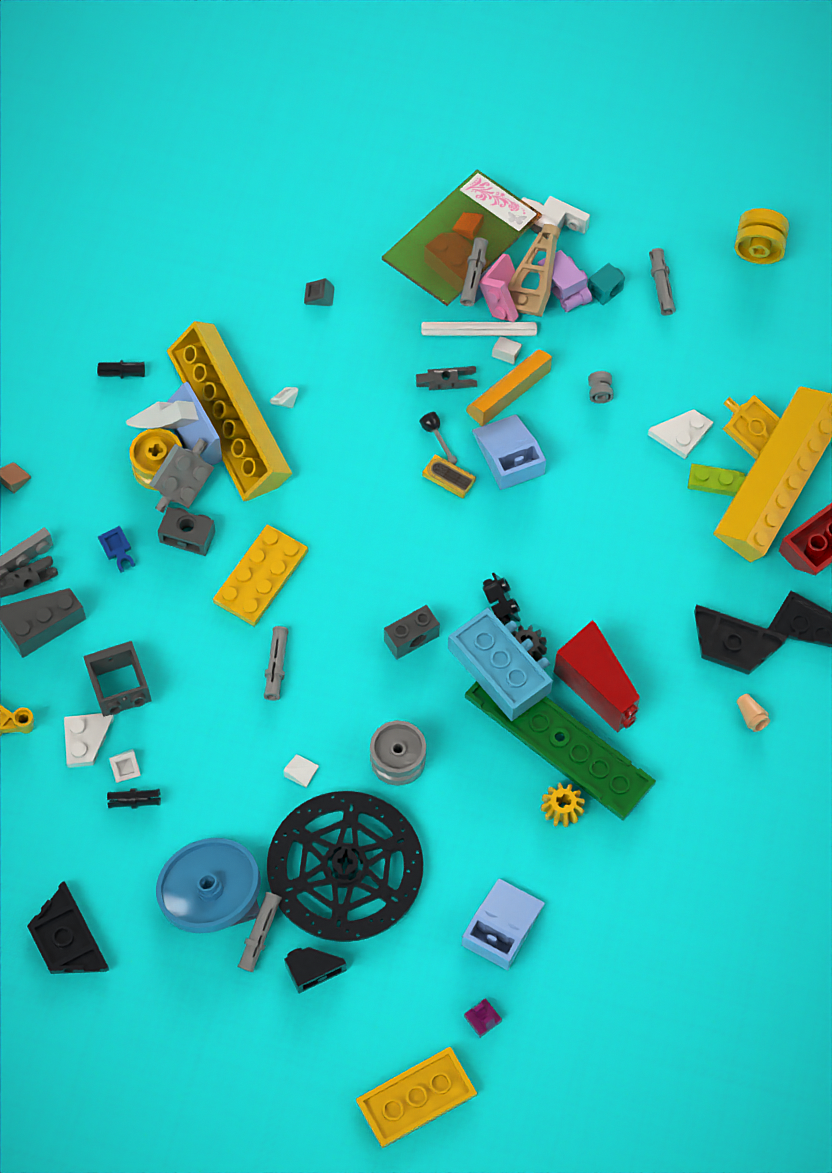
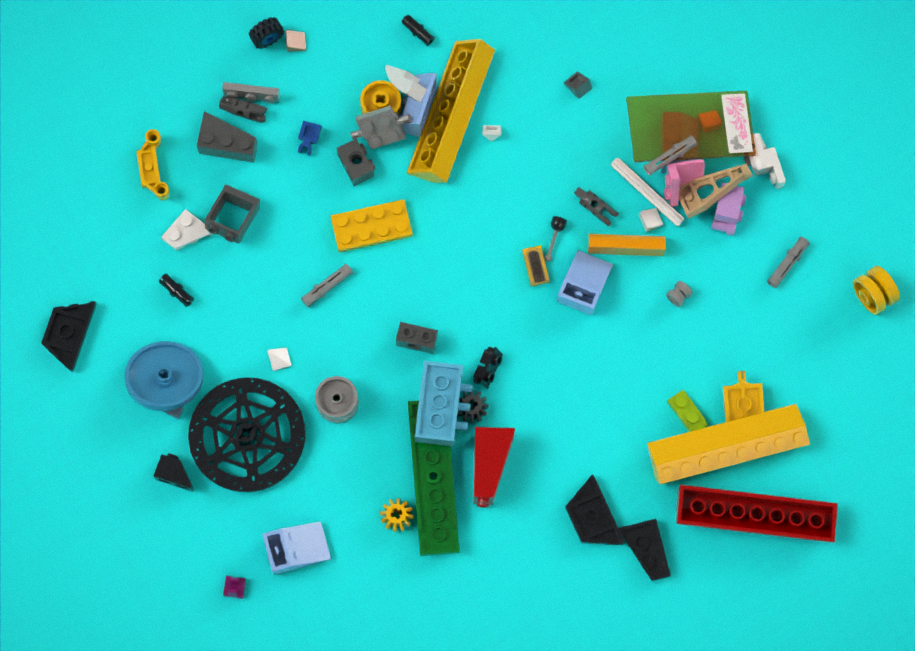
camera: 45 degrees right, 10 degrees up
(124, 766) = (190, 267): white slope -> none
(259, 932) = (159, 430): light grey pin -> none
(416, 1097) = (156, 594): yellow plate -> none
(606, 283) = (752, 233): teal brick -> none
(682, 432) = (699, 365): white wing -> none
(753, 714) = (557, 568): light nougat cone -> none

